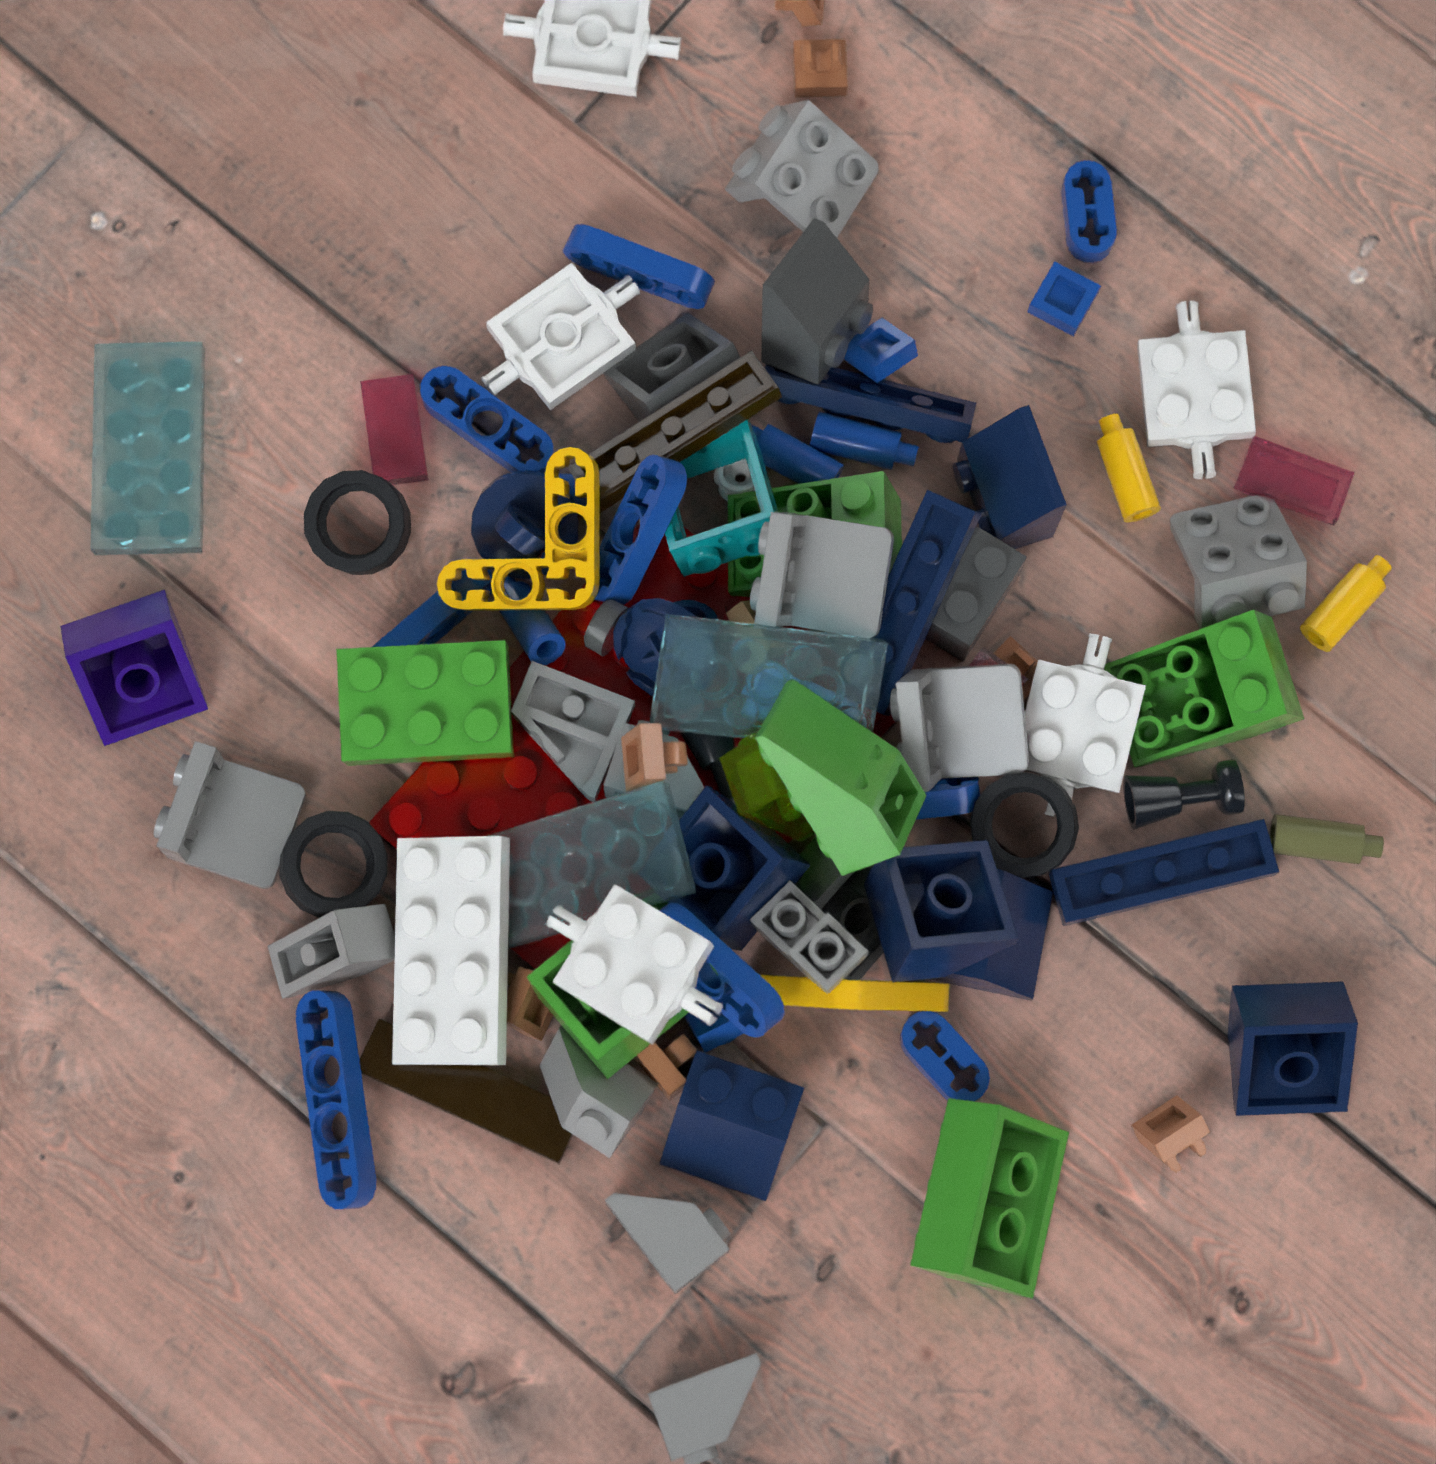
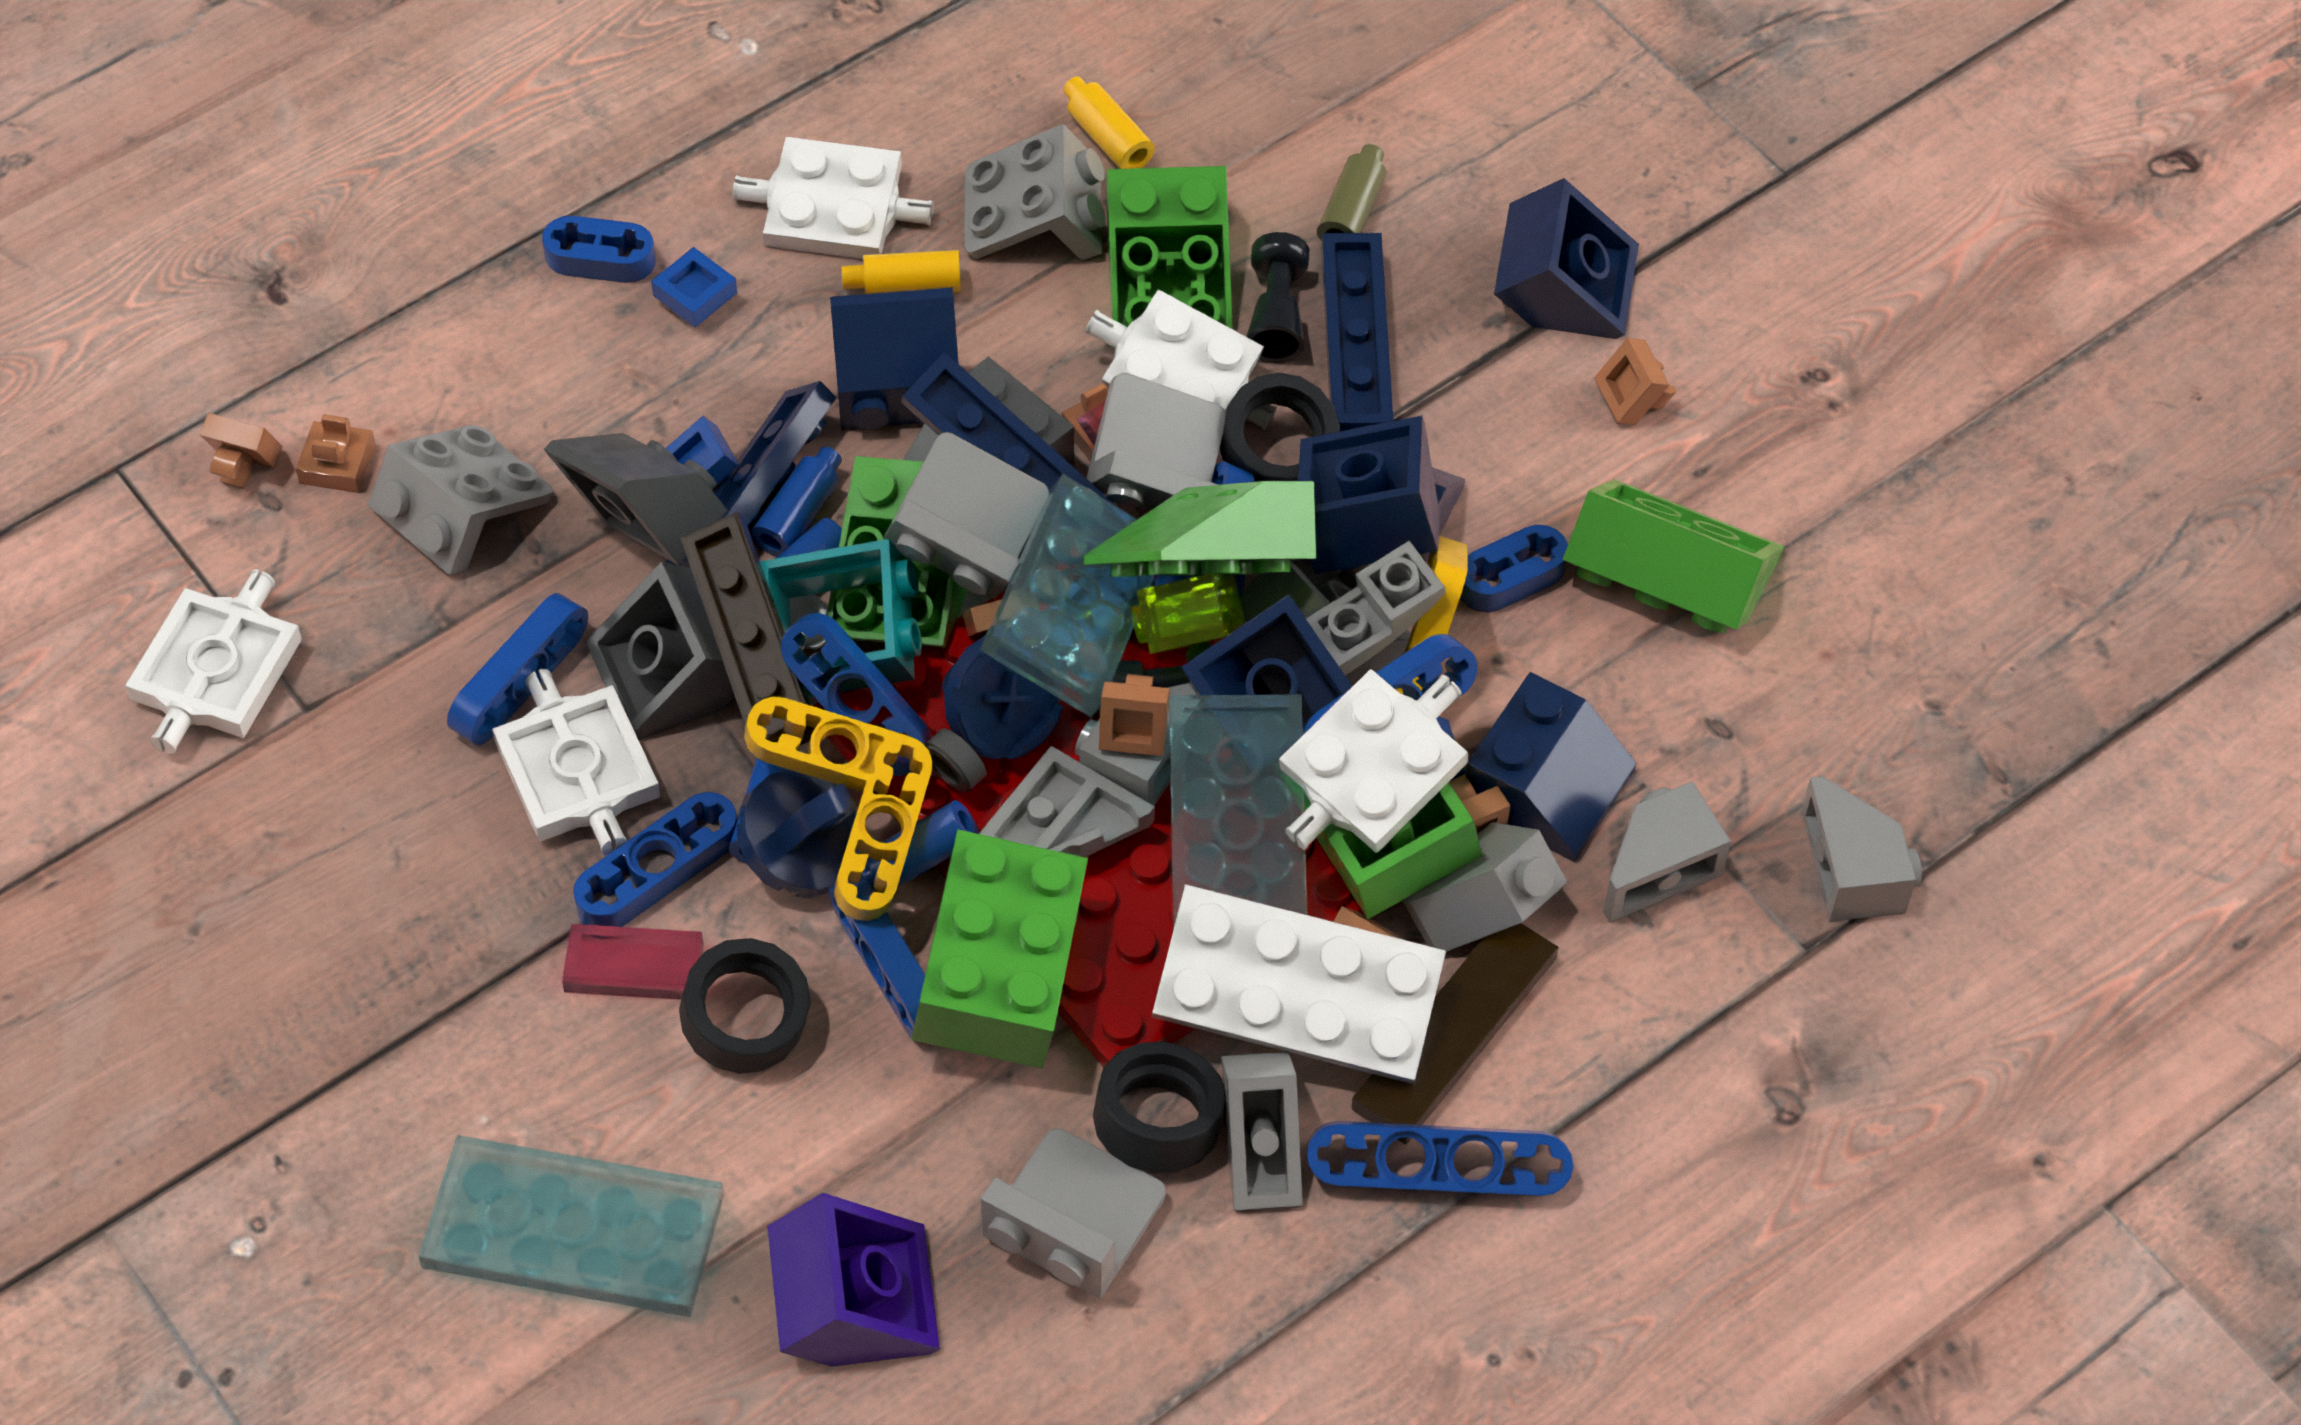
camera: 75 degrees left, 20 degrees down
(1294, 480) = (957, 139): clear pink tile -> none

